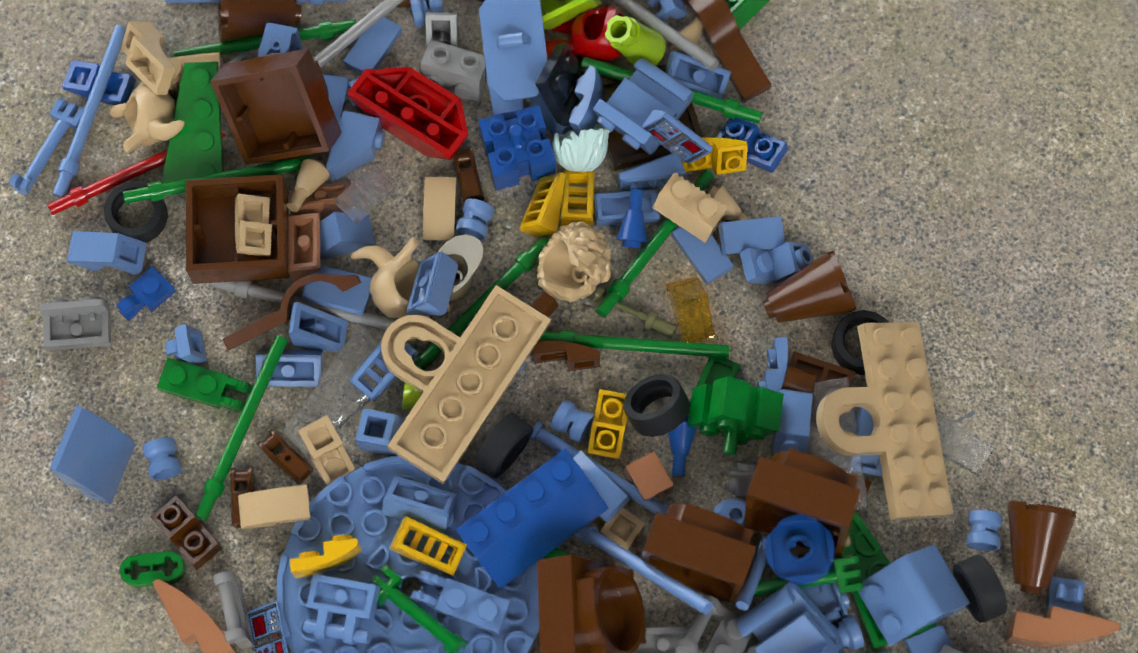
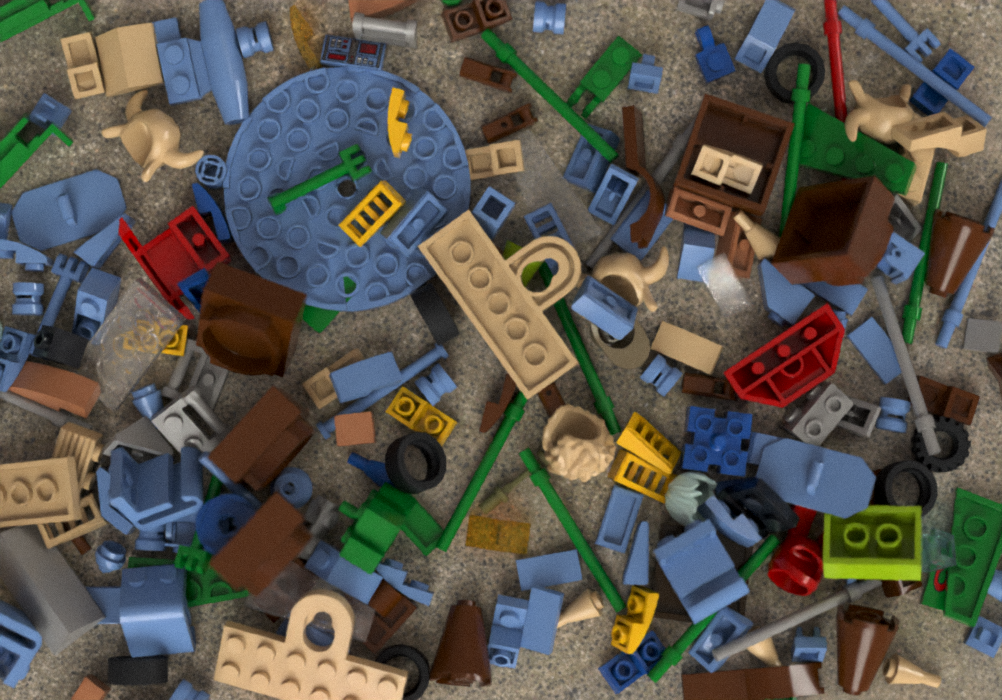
camera: 115 degrees right, 15 degrees up
(273, 506) = (462, 96): tan slope -> none
(341, 597) = (353, 125): medium blue plate -> none
(464, 603) = (310, 225): medium blue hinge -> none
(532, 518) = (354, 310): blue slope -> none
(591, 535) = (326, 355): medium blue bar -> none
(633, 229) = (591, 513): blue cone -> none
(635, 40) = (770, 593): lime plant -> none
(676, 136) = (656, 587): slope -> none
(689, 207) = (586, 572): tan brick -> none

